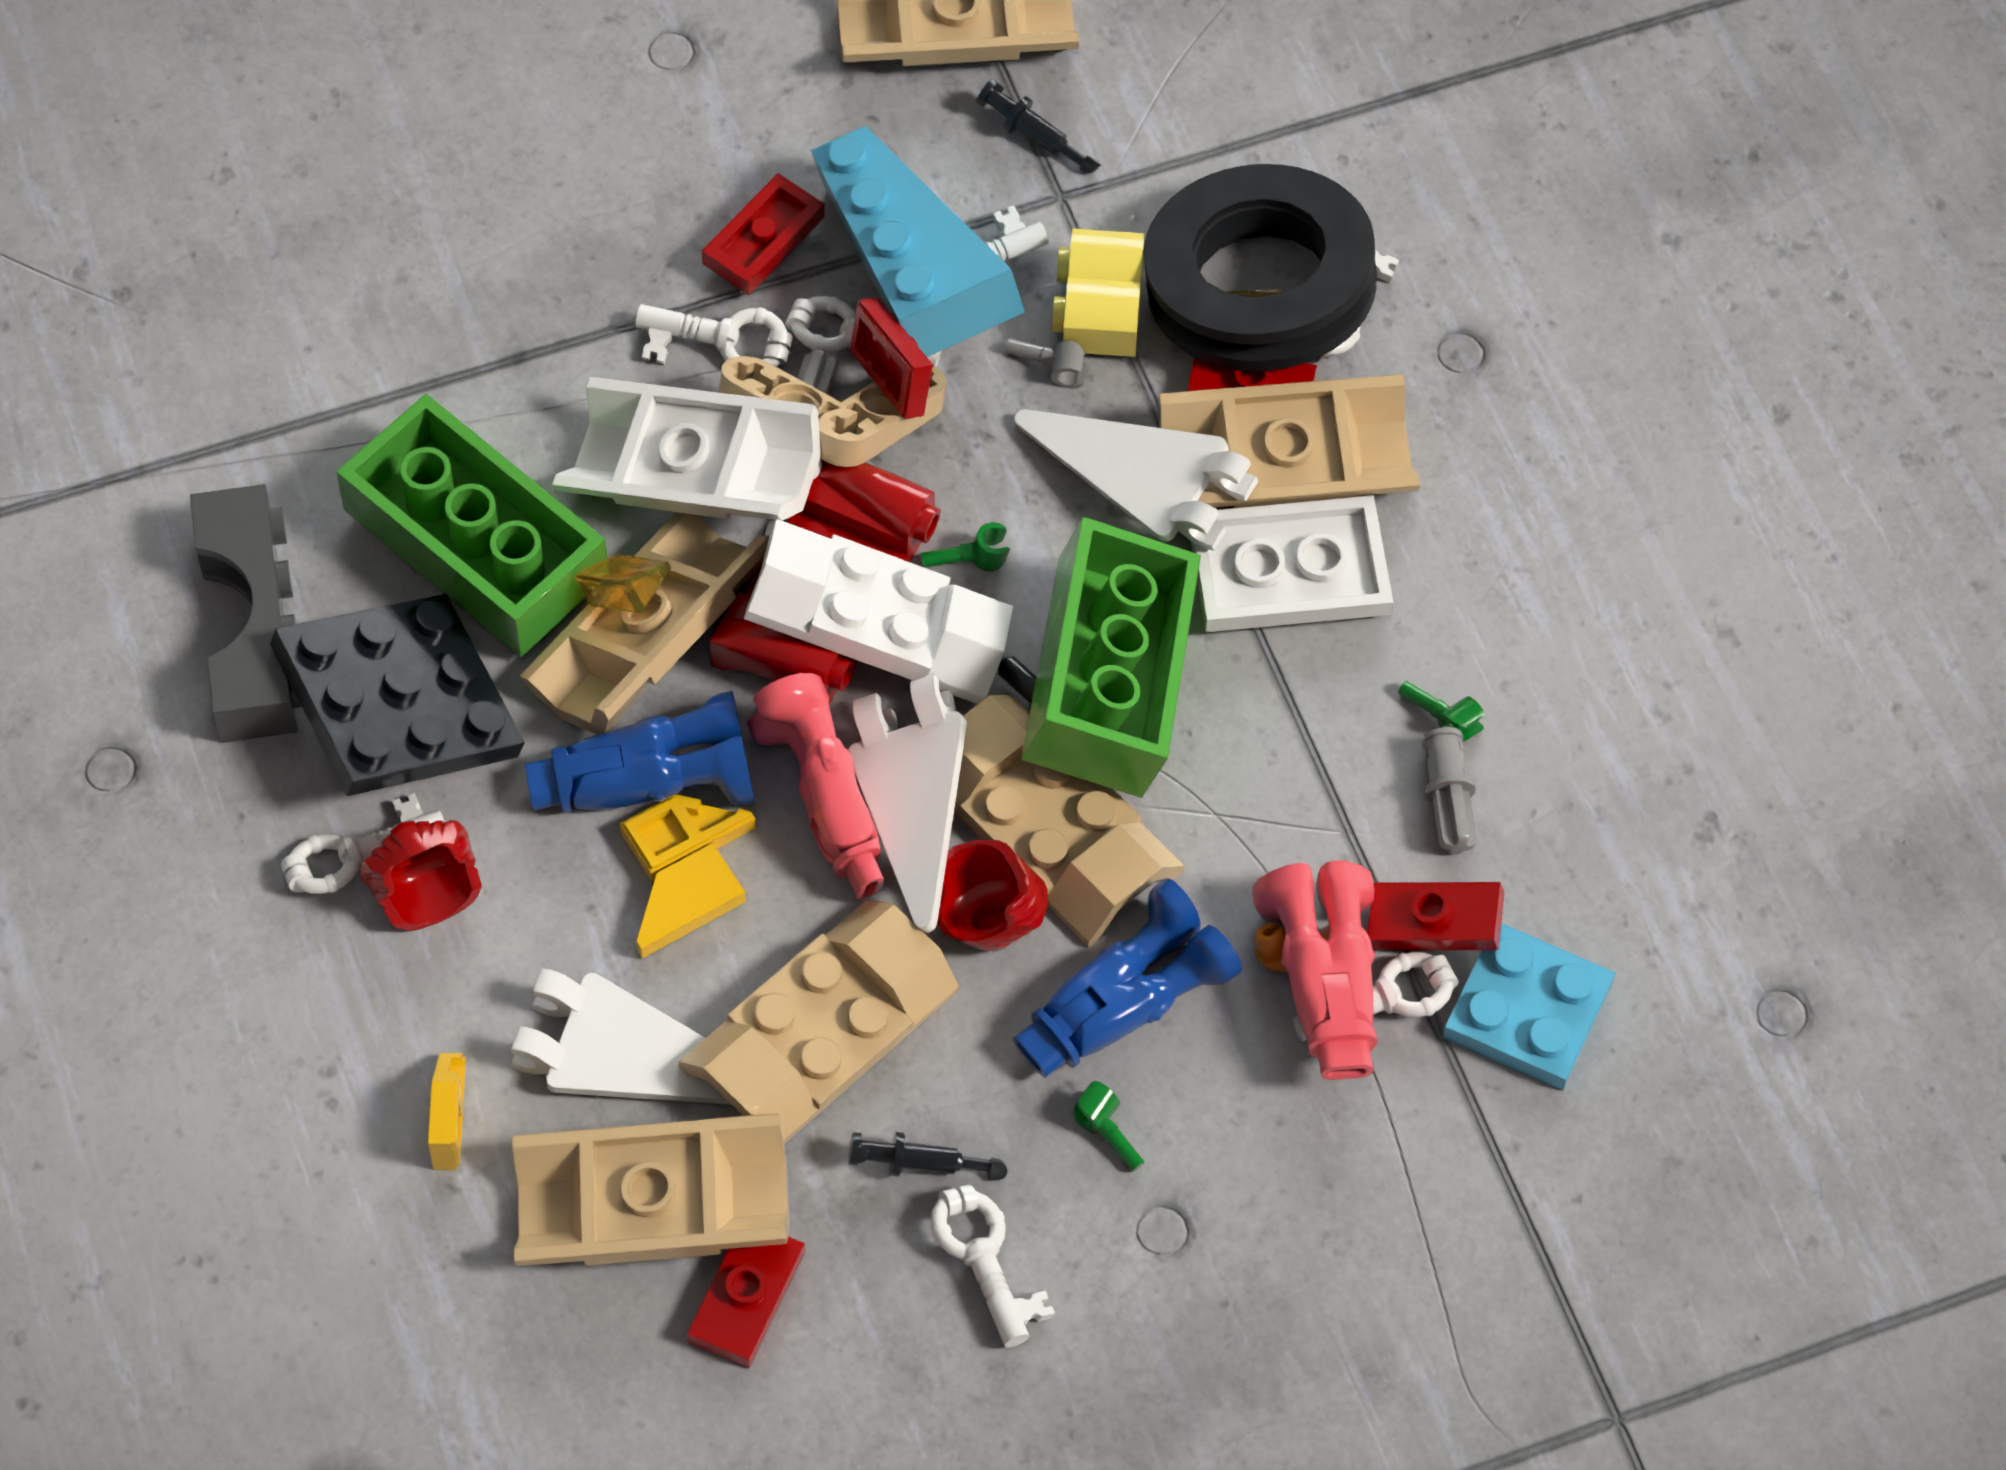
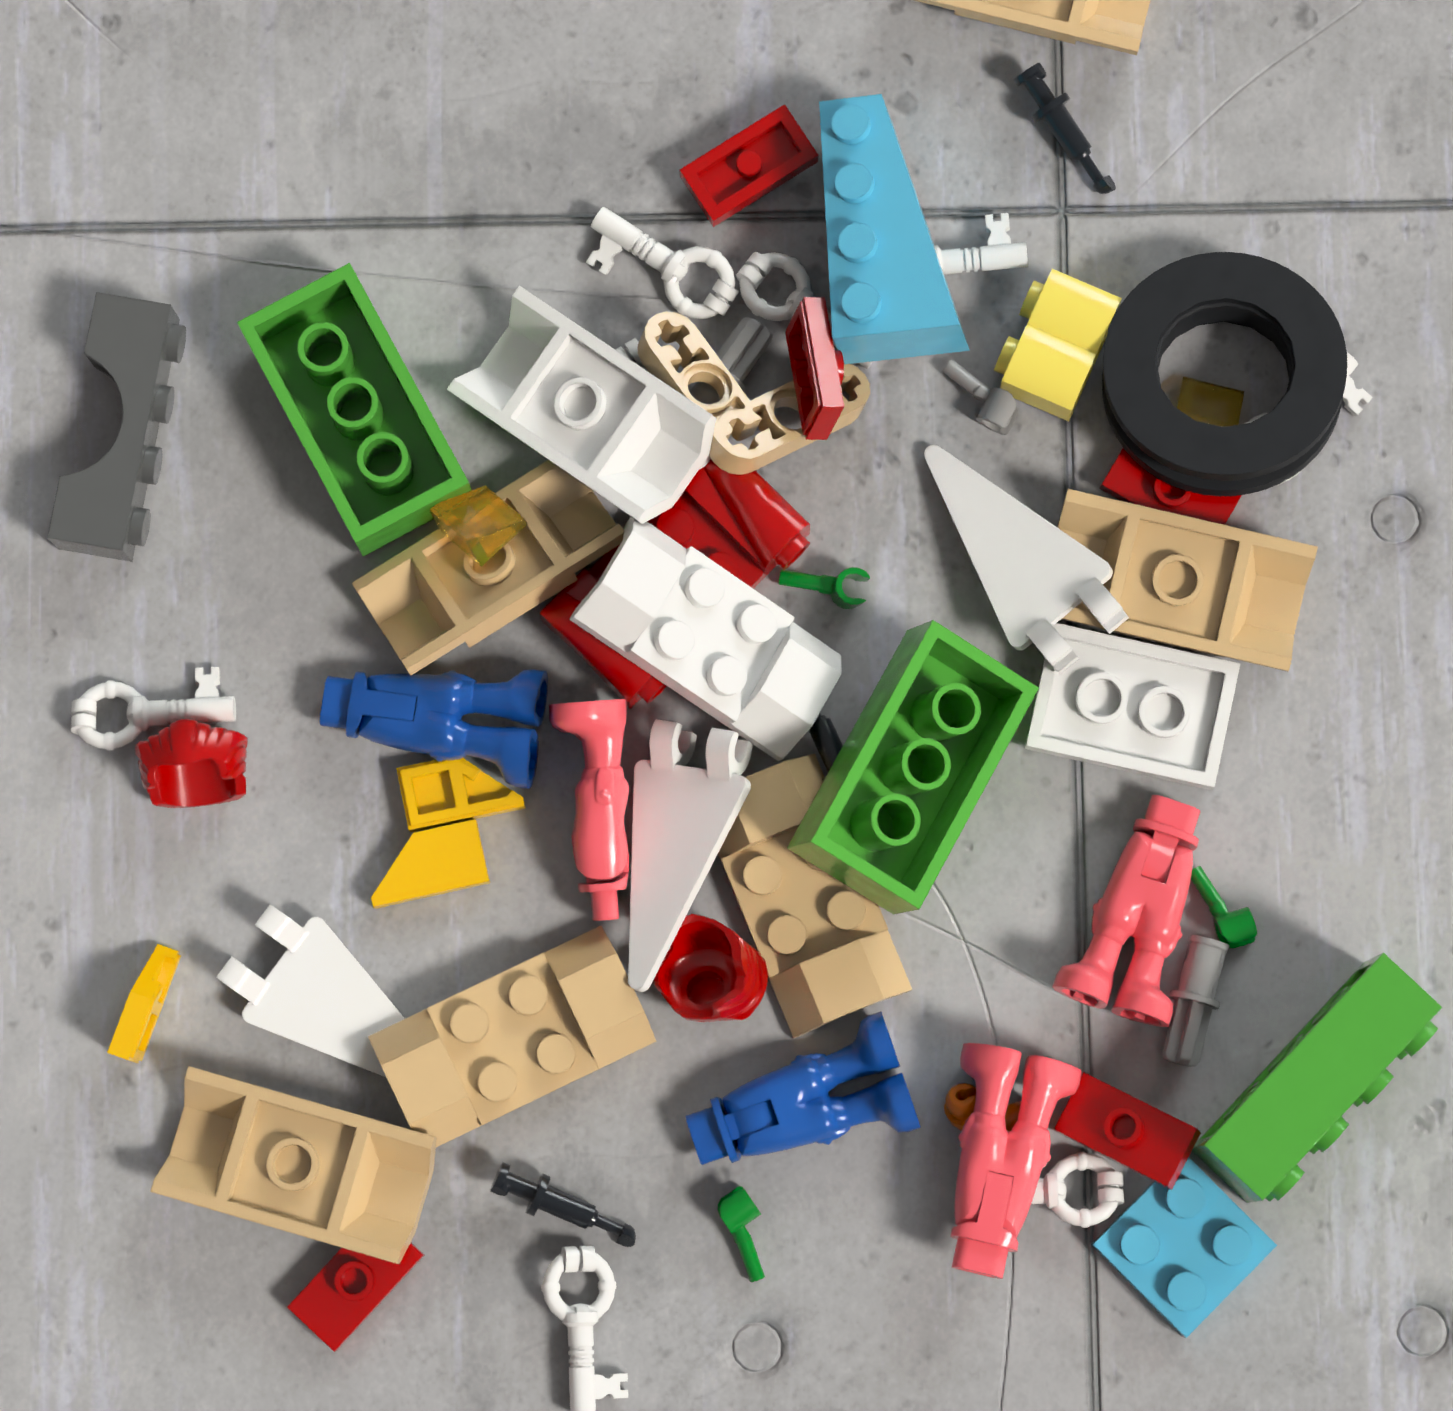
camera: 25 degrees right, 20 degrees up
(396, 694) = (227, 568): black plate -> none
(1373, 721) = (1143, 903): none -> coral piece
(1593, 807) = (1316, 1079): none -> bright green brick

